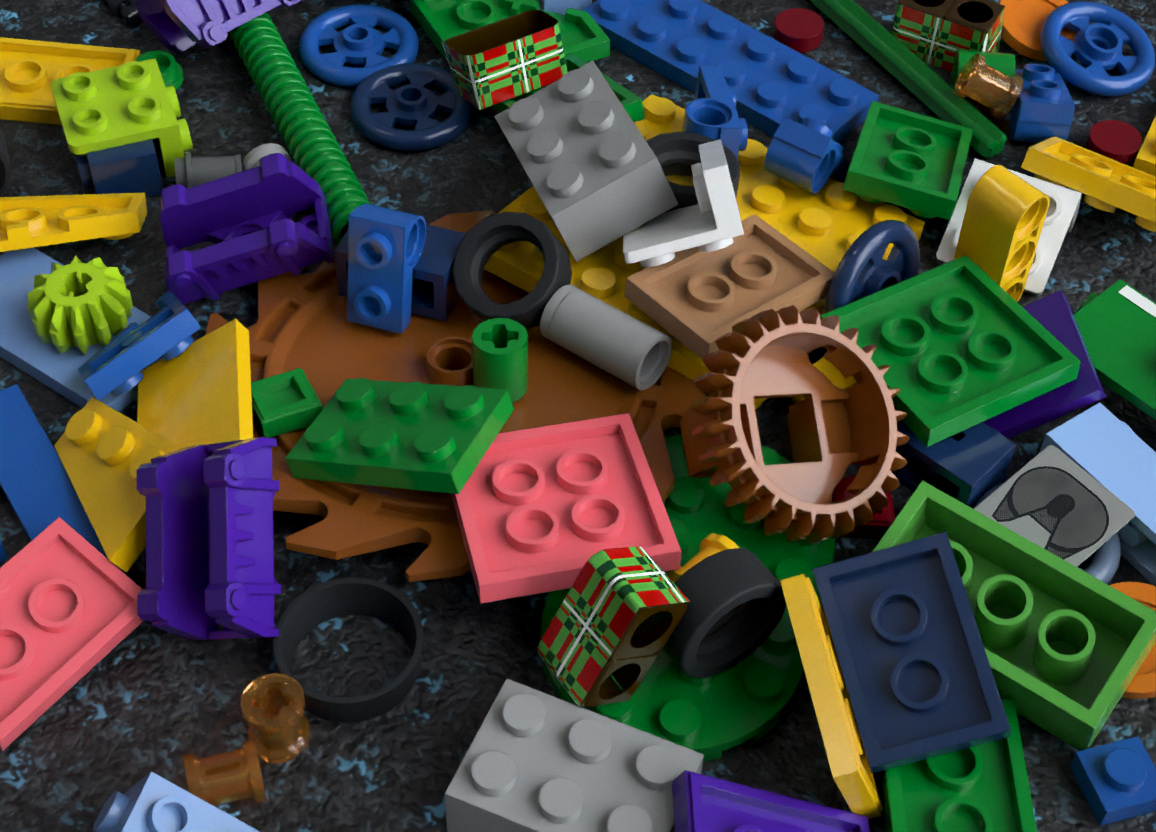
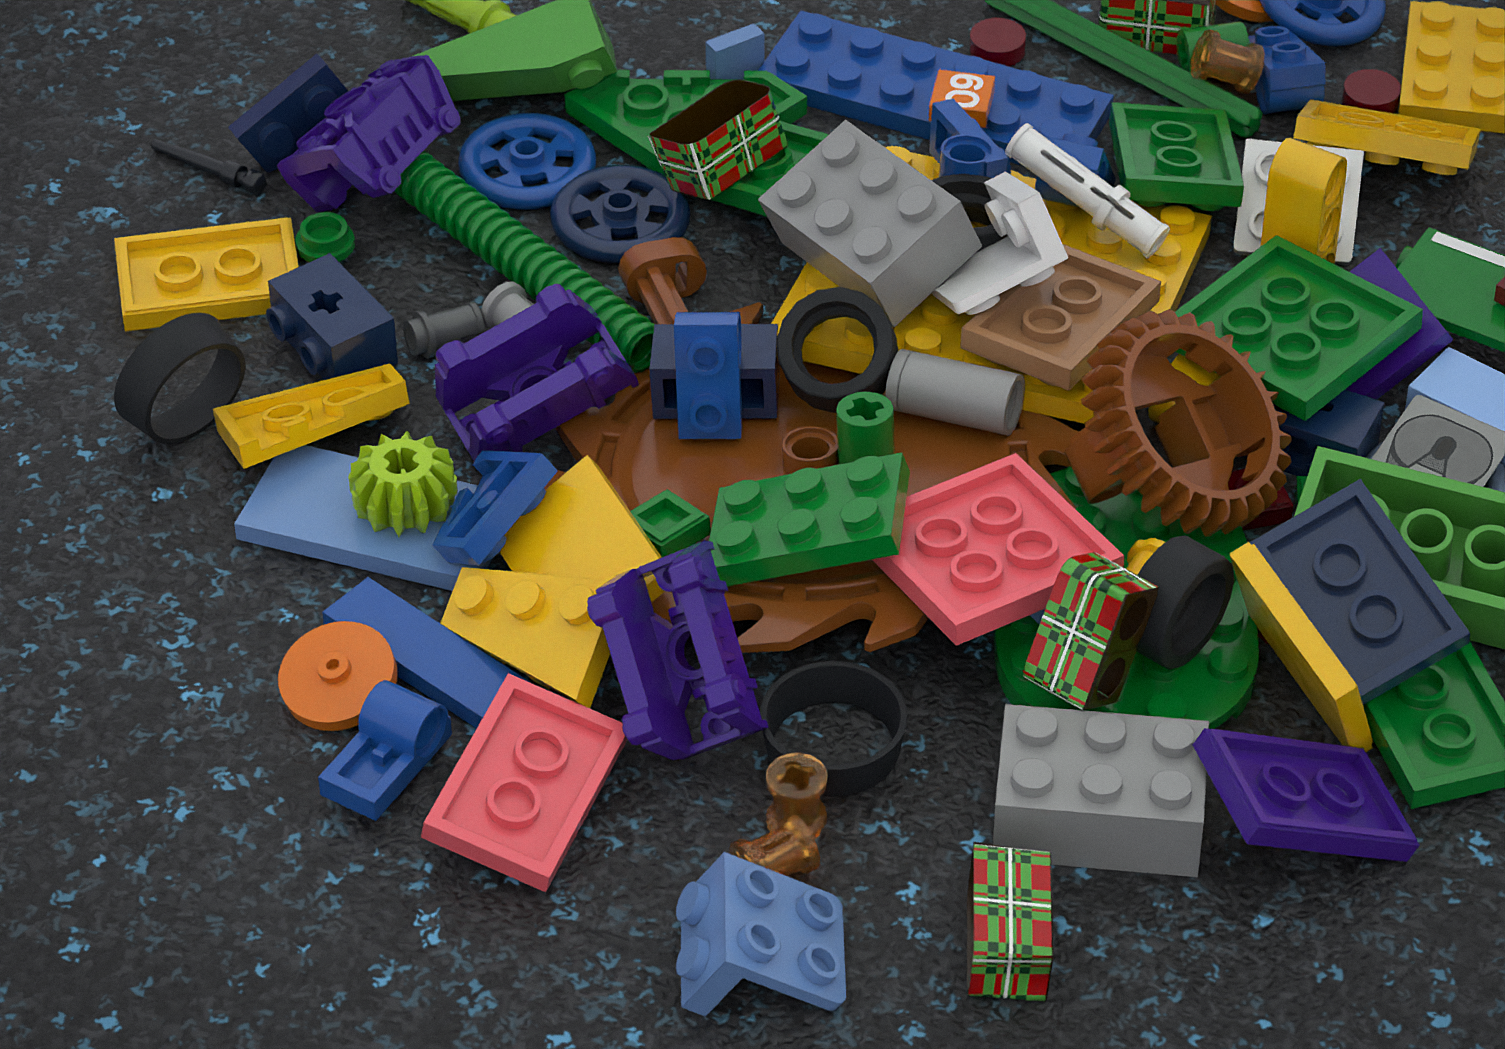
camera: 15 degrees left, 5 degrees down
(120, 109) = (328, 282): lime bracket -> none
(405, 172) = (652, 278): none -> dark orange piece
(743, 67) = (969, 90): none -> orange tile
(767, 127) = (1106, 204): none -> white pin
(866, 272) = (1184, 273): dark blue plate -> none

